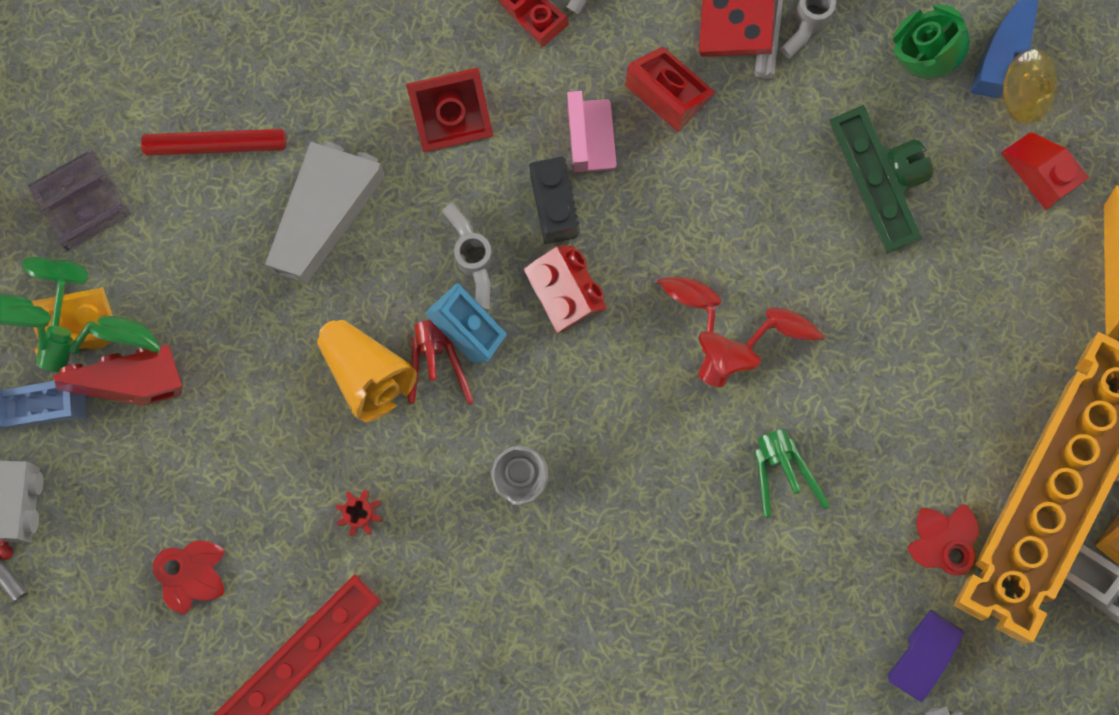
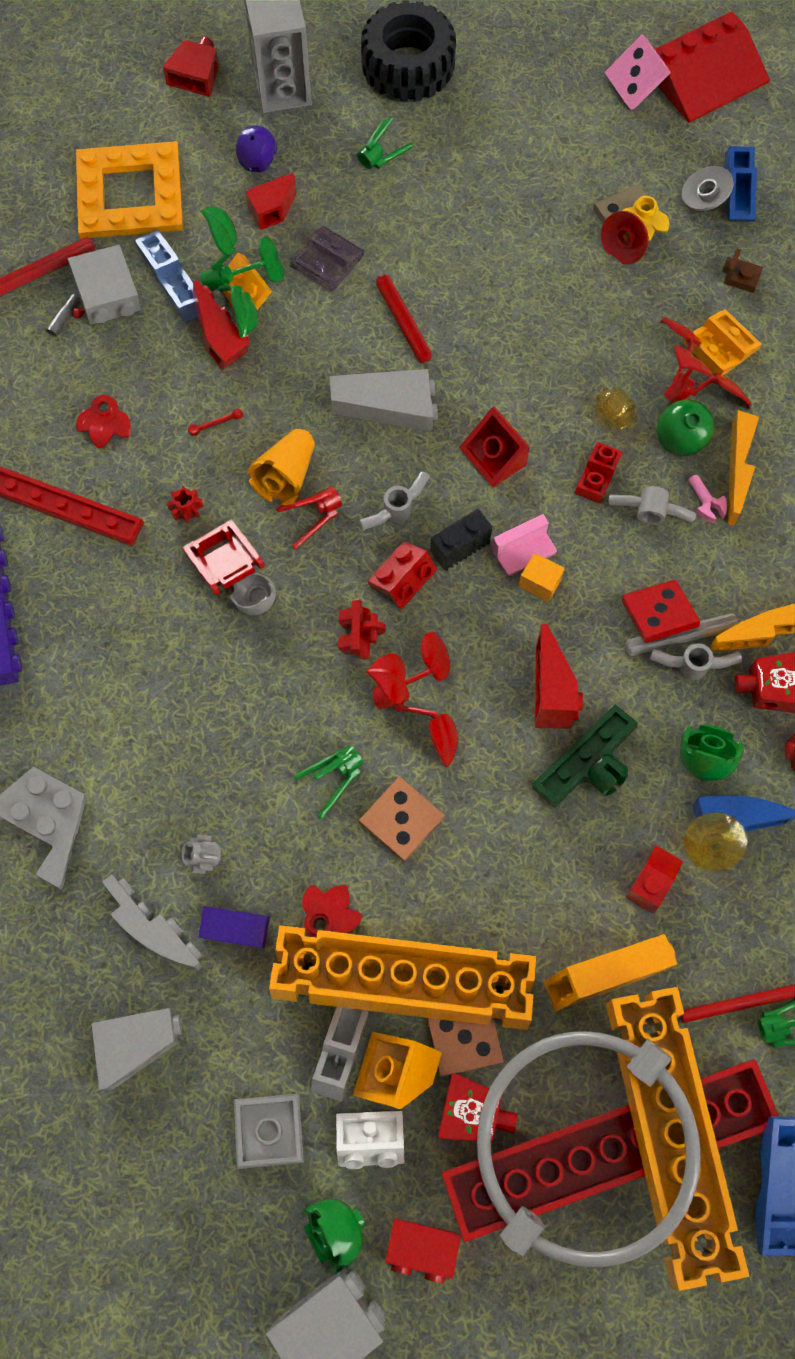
camera: 65 degrees right, 10 degrees down
(252, 462) = (194, 429): none -> red hinge
(464, 492) = (226, 564): none -> container
(466, 324) = (345, 517): dark azure slope -> none
(603, 361) = (363, 627): none -> red hips
(642, 129) = (541, 577): none -> light orange panel
(667, 87) = (586, 584): red slope -> none
(785, 174) = (555, 685): none -> red slope
(826, 661) = (201, 854): none -> light grey gear
(867, 414) = (401, 819): none -> nougat tile

